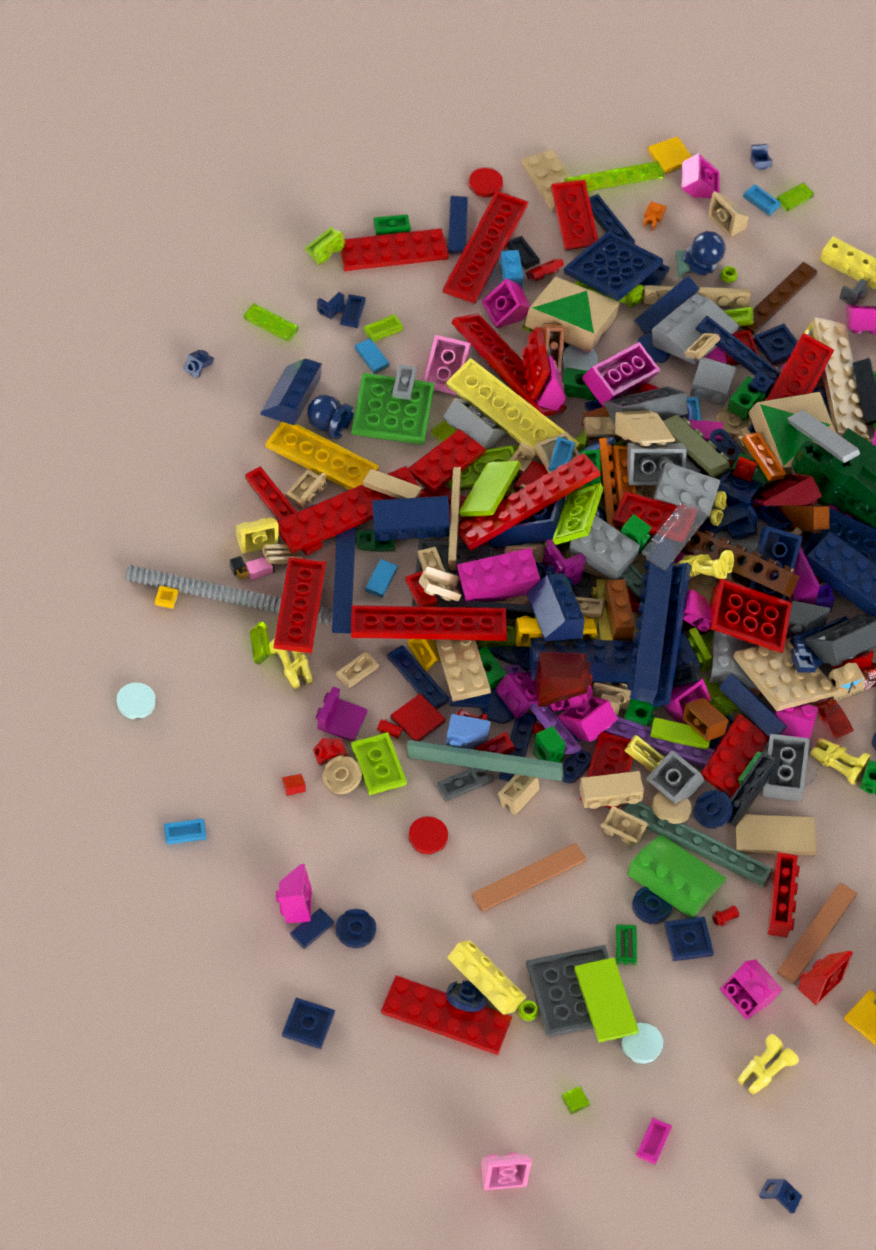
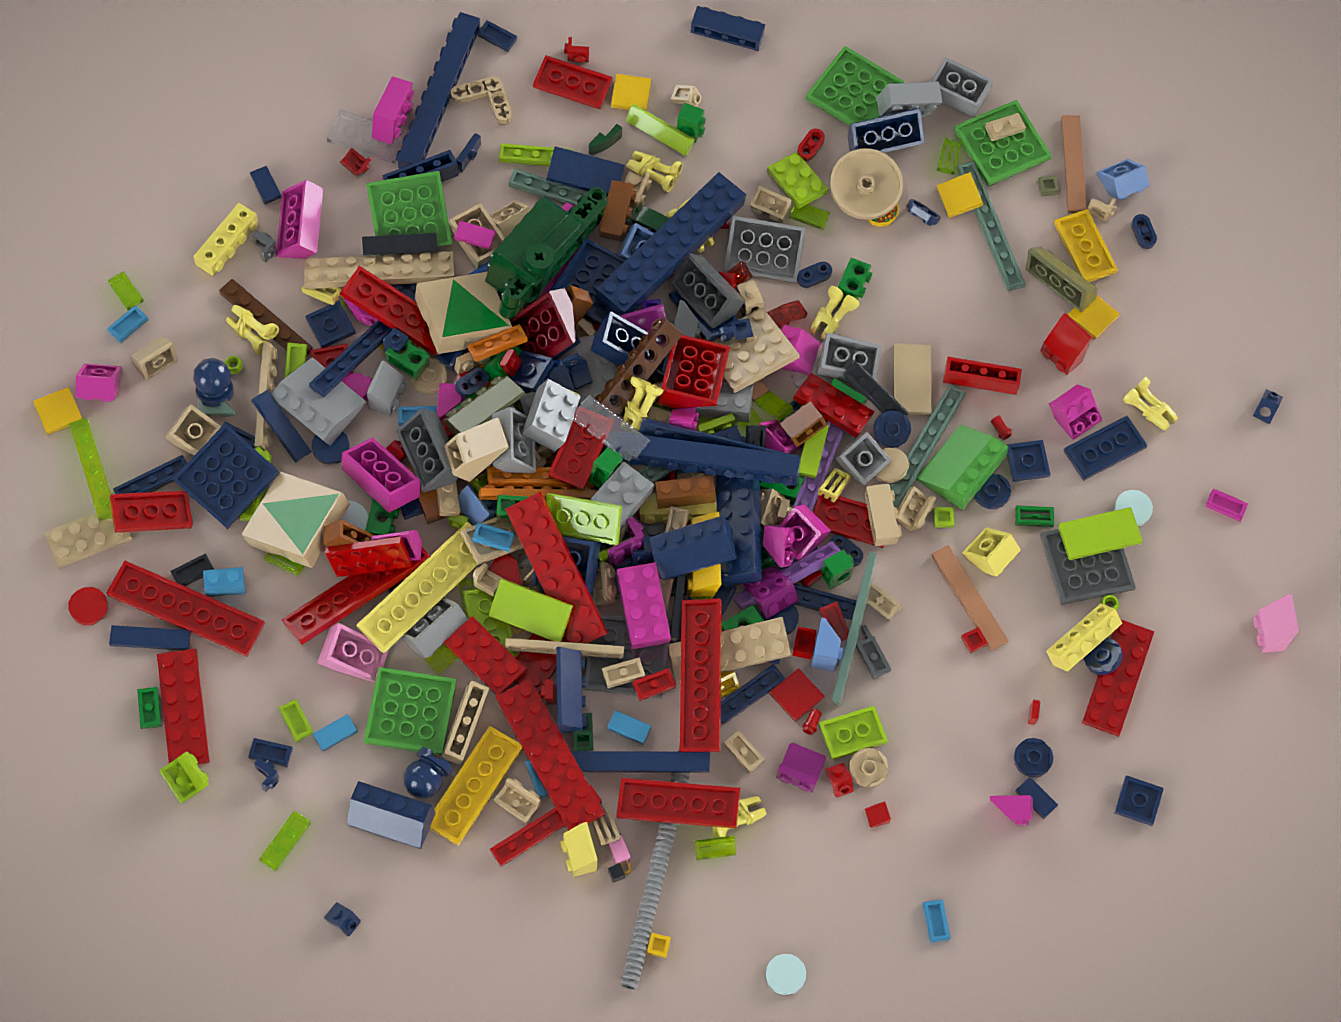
camera: 90 degrees left, 10 degrees up
(380, 444) = (464, 722): none -> tan brick
(391, 486) = (529, 707): tan tile -> none
(403, 927) = (1034, 712): none -> red tile
(404, 382) = (382, 695): light grey plate -> none
(428, 835) = (929, 688): red tile -> none
(440, 583) = (654, 663): tan bracket -> none
(481, 876) = (974, 640): none -> red plate
(506, 304) = (271, 589): dark pink slope -> none
(549, 267) = (221, 548): red plate -> none
(561, 677) = (774, 547): clear red slope -> none
(575, 1100) = (1193, 568): clear neon green tile -> none
(580, 897) = (992, 551): none -> light yellow slope
(617, 855) = (943, 517): none -> lime plate
(654, 214) = (143, 432): orange plate -> none
(658, 240) = (192, 430): none -> tan slope
(702, 346) = (363, 399): tan tile -> none
(712, 1020) = (1105, 448): none -> dark blue tile
(752, 706) = (784, 382): dark blue tile -> none
(760, 156) = (71, 319): dark blue bracket -> none
(766, 279) = (246, 323): none -> light yellow piece
(816, 933) = (1012, 352): nougat tile -> none
(823, 436) = (499, 276): light grey tile -> none

